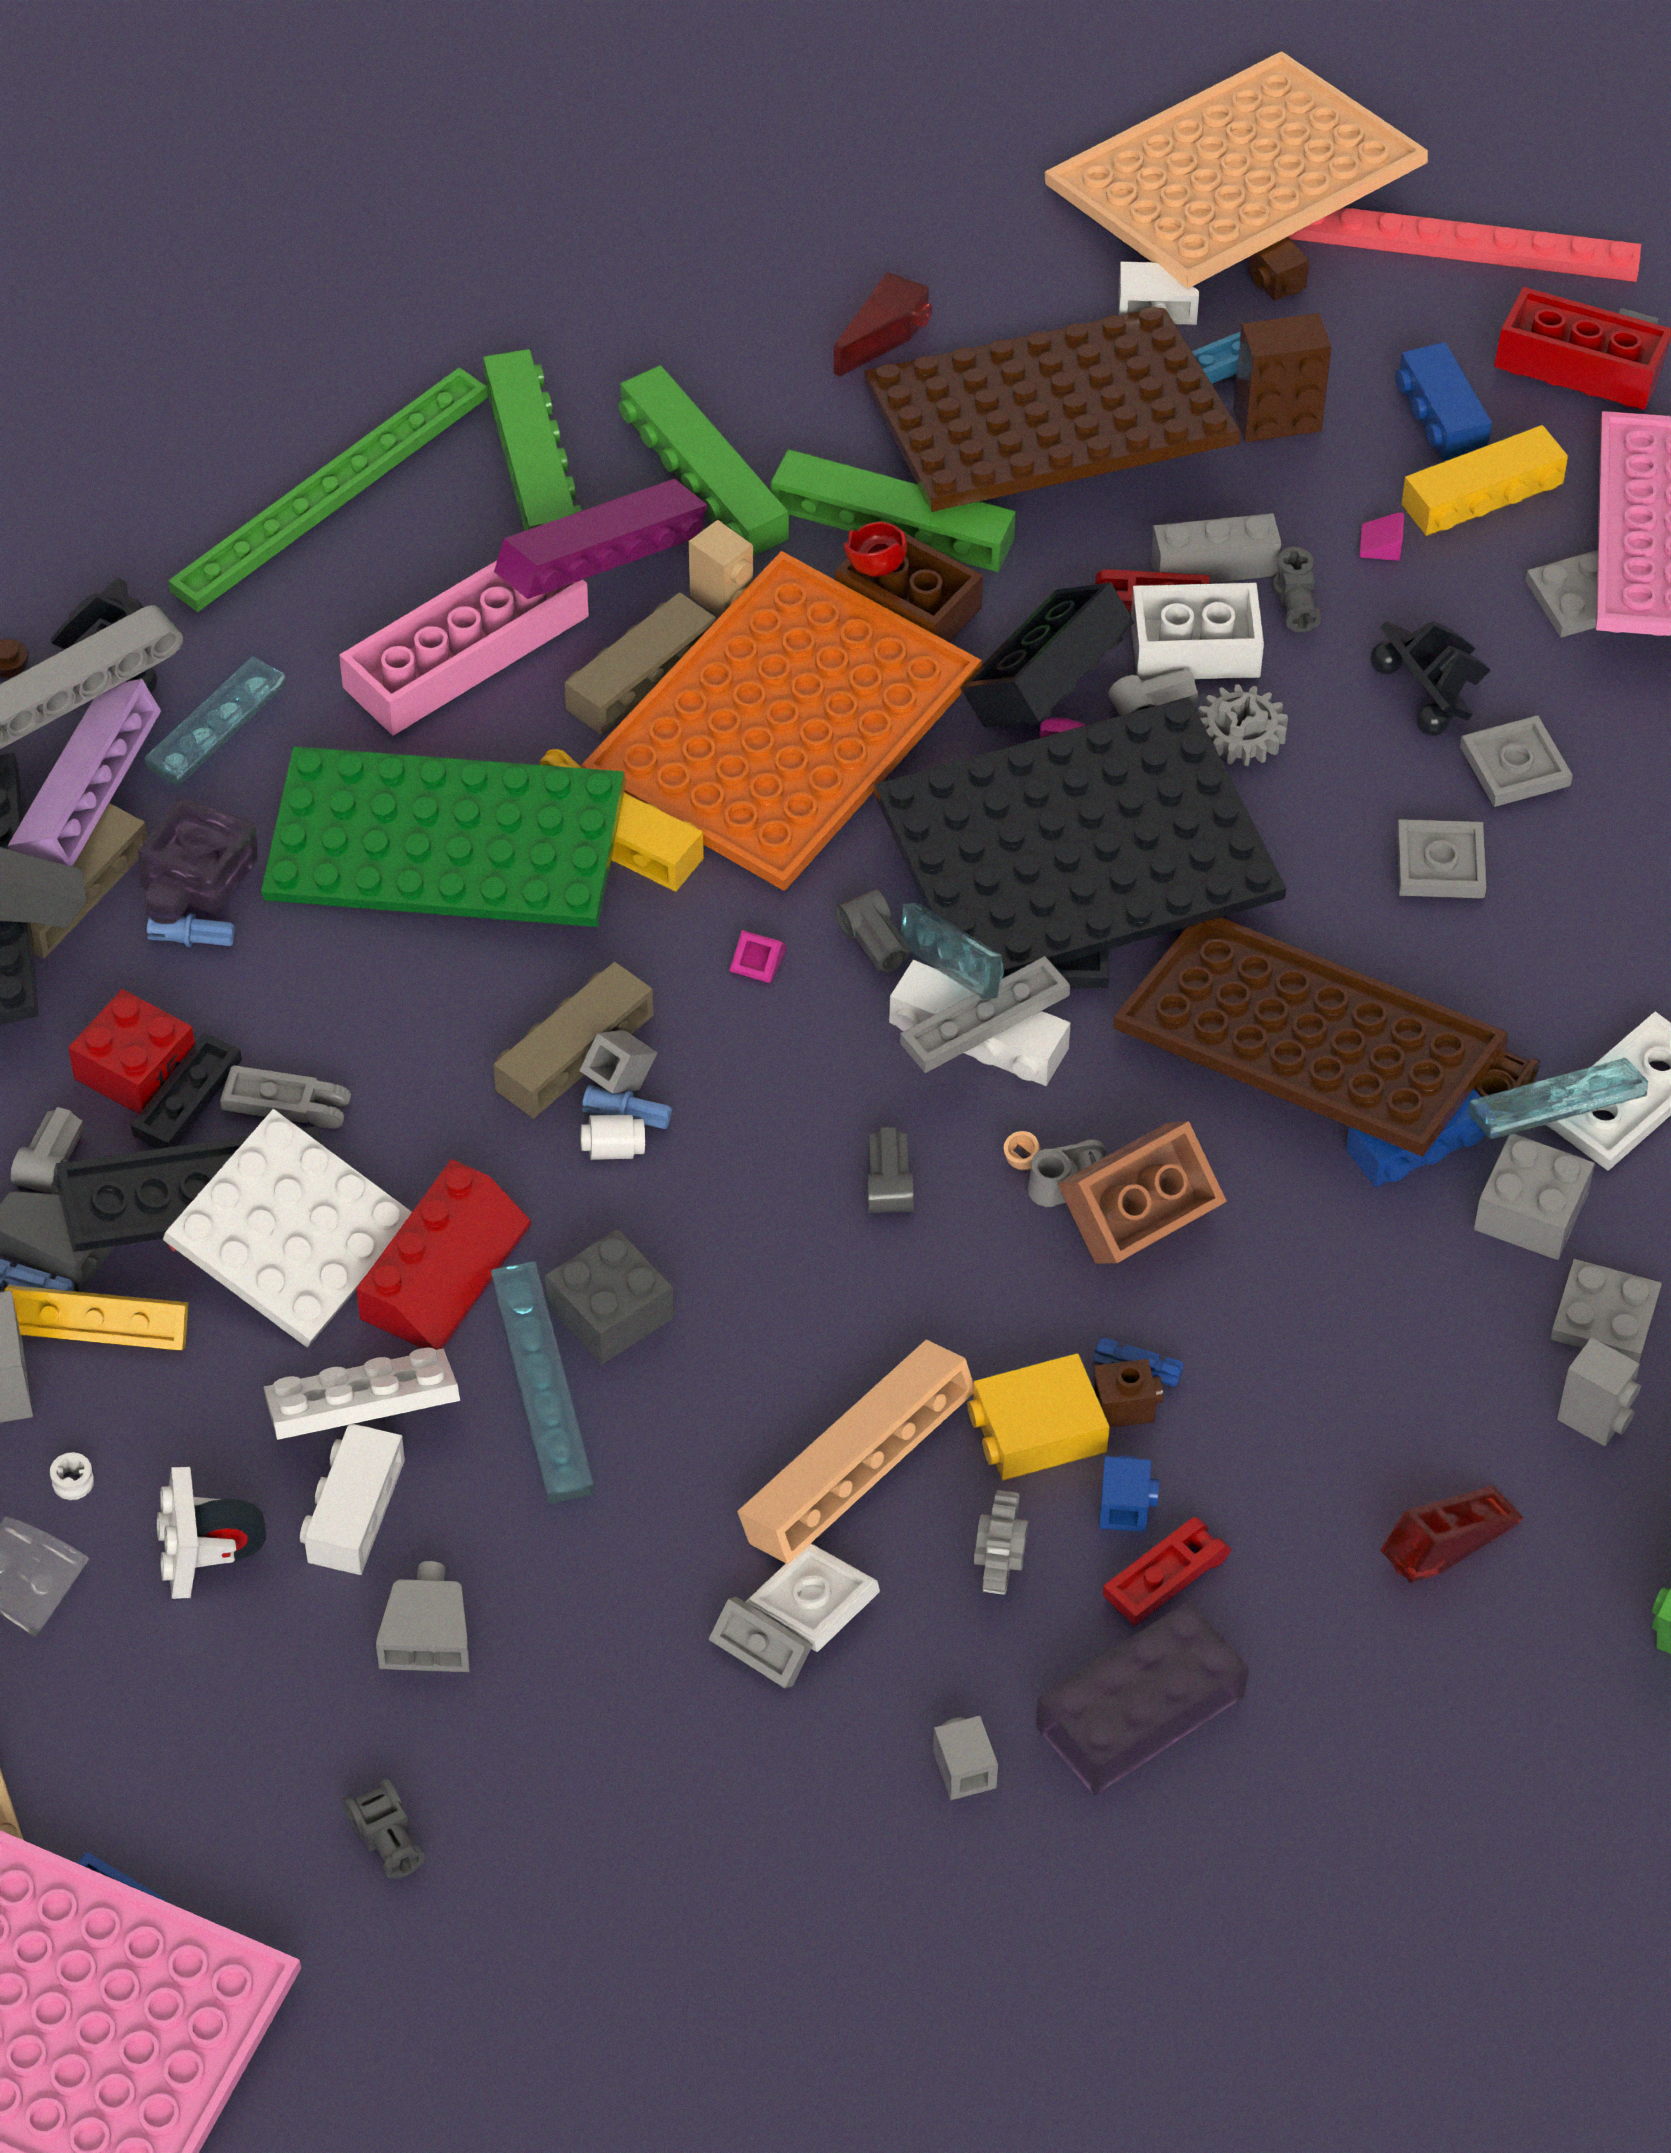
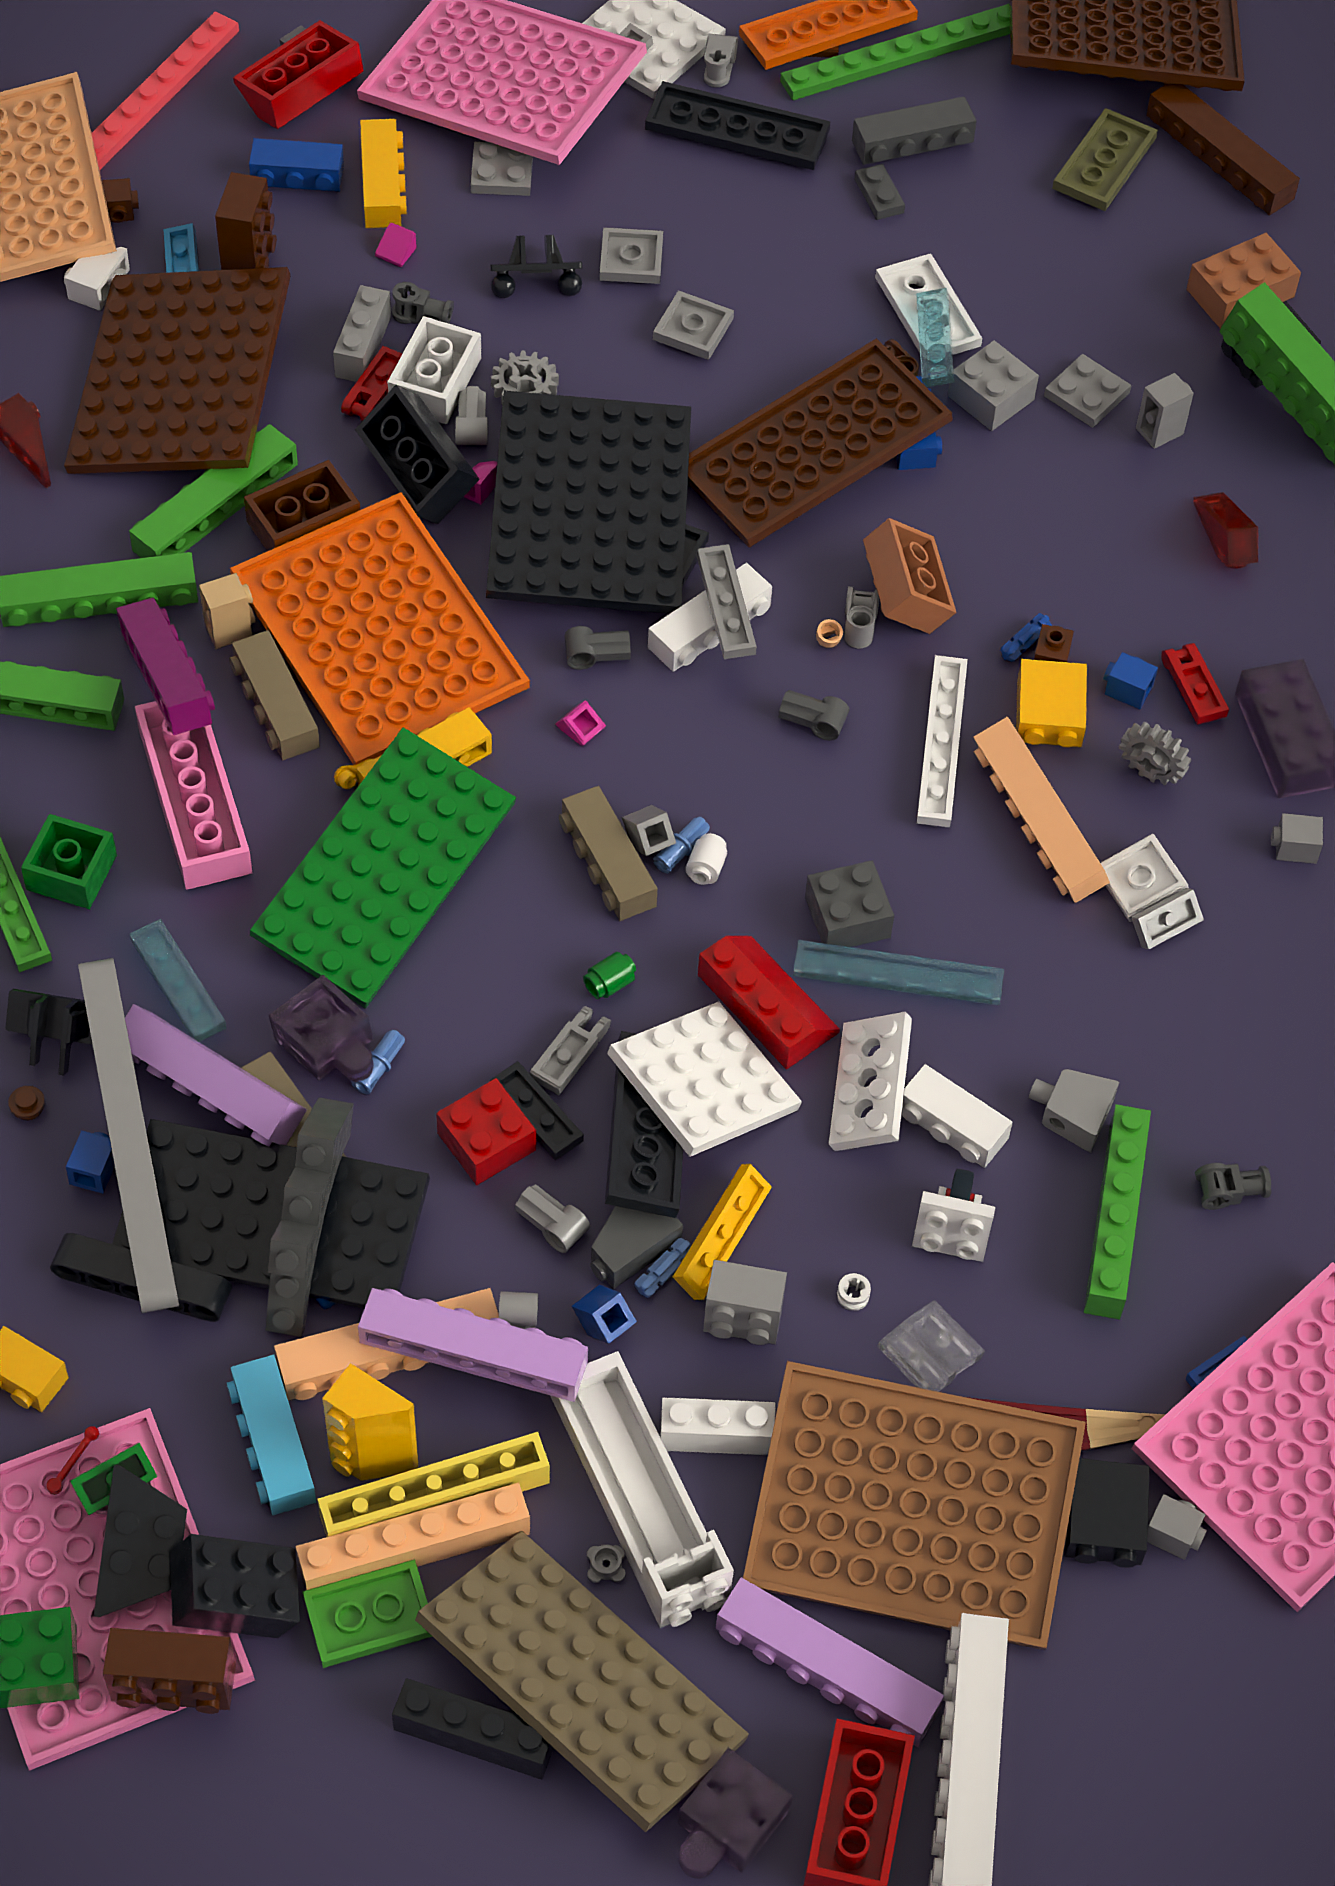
camera: 70 degrees left, 5 degrees up
(287, 1708) = (1117, 1212): none -> bright green brick
(316, 569) = (69, 861): none -> green brick
(400, 1097) = (609, 975): none -> green brick
(876, 548) = (281, 503): red hair -> none
(919, 1319) = (942, 741): none -> white plate
(952, 951) = (663, 598): clear light blue plate -> none

